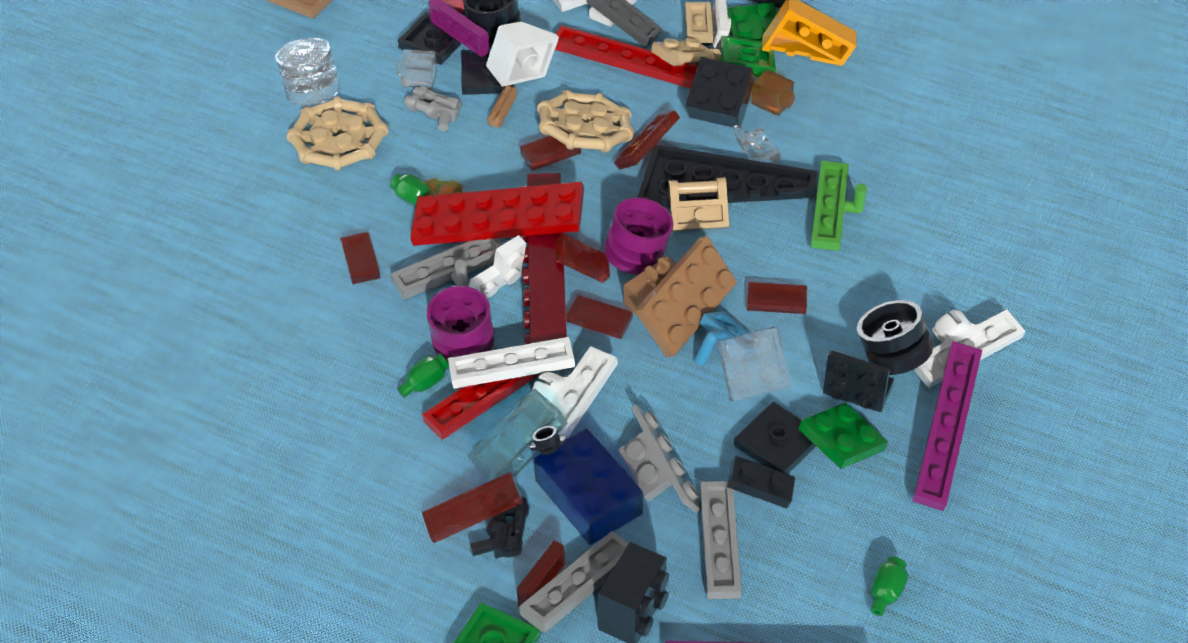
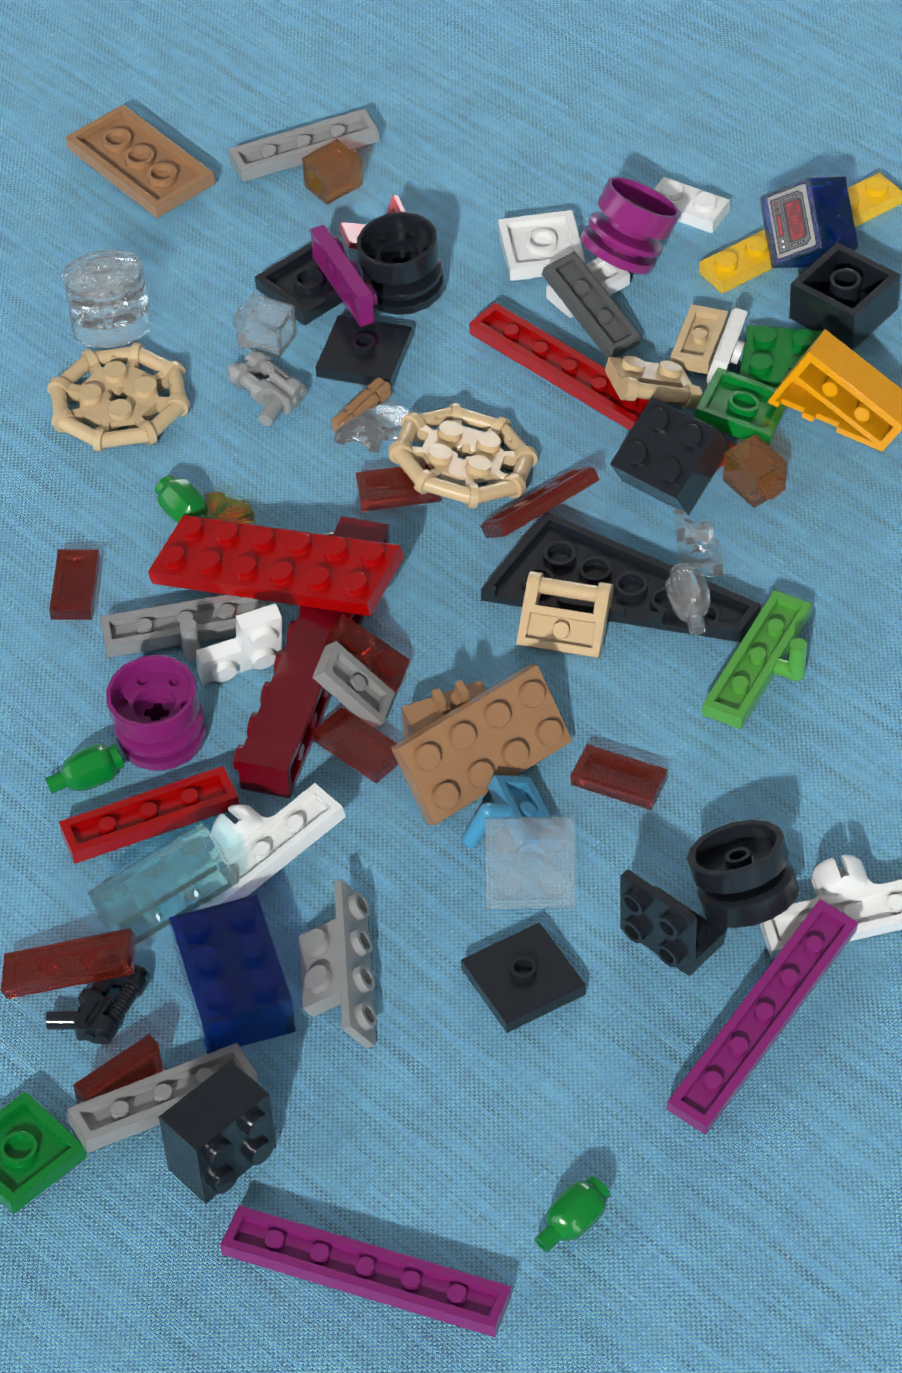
camera: 20 degrees right, 0 degrees up
(511, 362) = (200, 779): white plate -> none
(517, 116) = (373, 426): none -> clear slope
(521, 53) = (408, 335): white slope -> none
(547, 440) = (191, 898): black plate -> none
(584, 278) = (353, 684): none -> light grey plate
(638, 235) = (452, 638): magenta wheel -> none
(720, 541) = (376, 1093): light grey plate -> none
(761, 482) = (467, 1029): black plate -> none
(775, 175) = (689, 596): none -> clear plant
(843, 435) = (611, 994): green plate -> none

